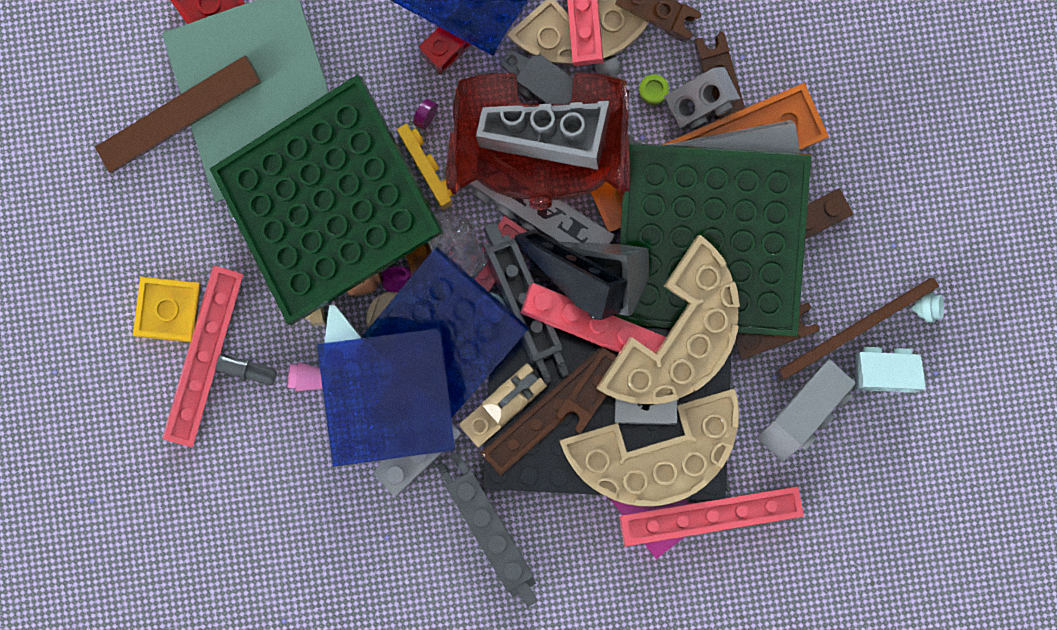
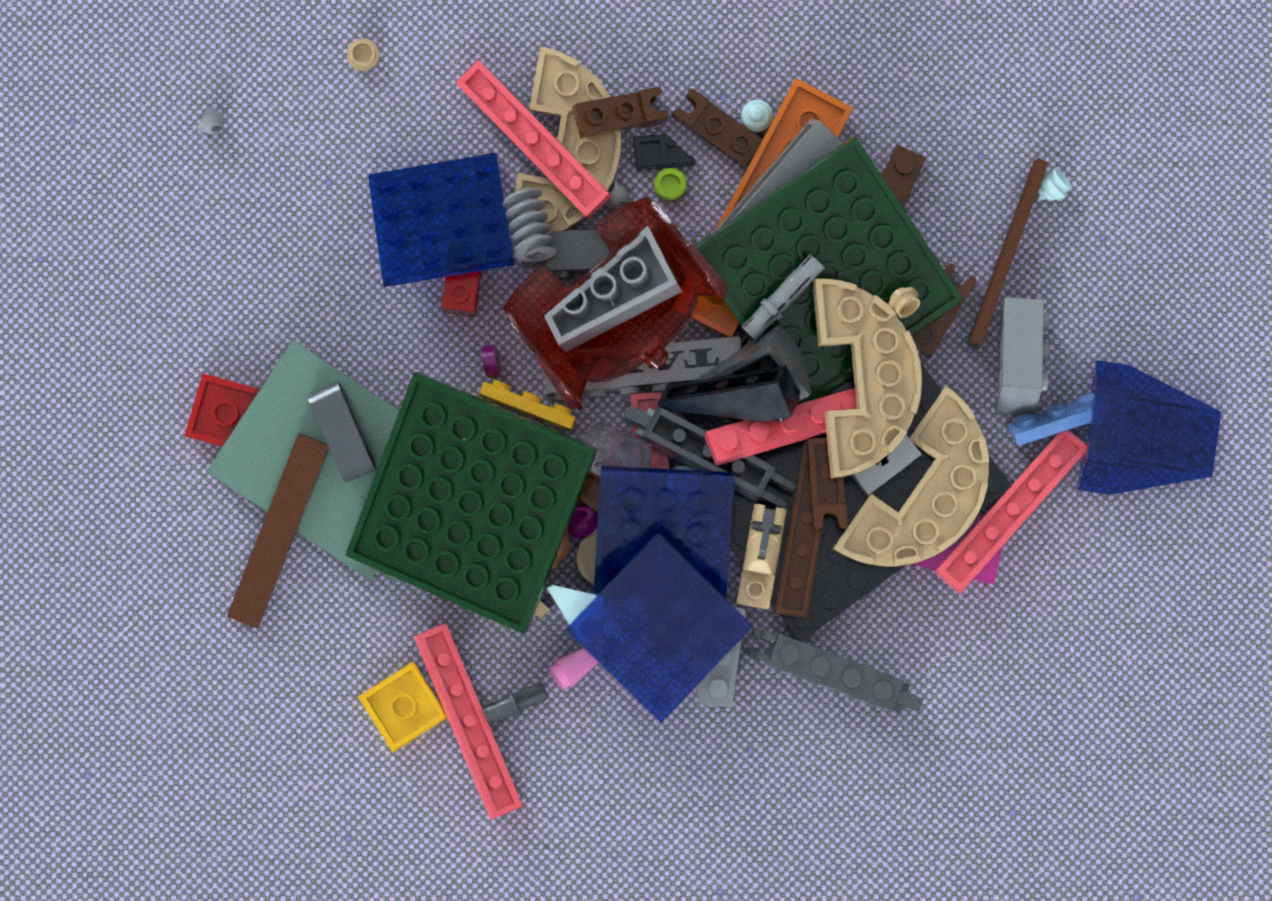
camera: 40 degrees left, 0 degrees up
(276, 79) = (342, 432): none -> dark grey beam
(525, 36) = (527, 226): none -> light grey piece
(663, 60) = (659, 153): none -> black tile
(665, 230) = (779, 301): none -> light grey pin
(700, 92) = (716, 157): light grey brick -> none
(752, 303) = (904, 301): none -> tan plate
(755, 88) = (757, 116): none -> light aqua plate
(798, 477) = (1052, 421): none -> medium blue plate
(852, 538) = (1144, 433): none -> clear blue wedge
(889, 371) = (1063, 268): light aqua slope -> none

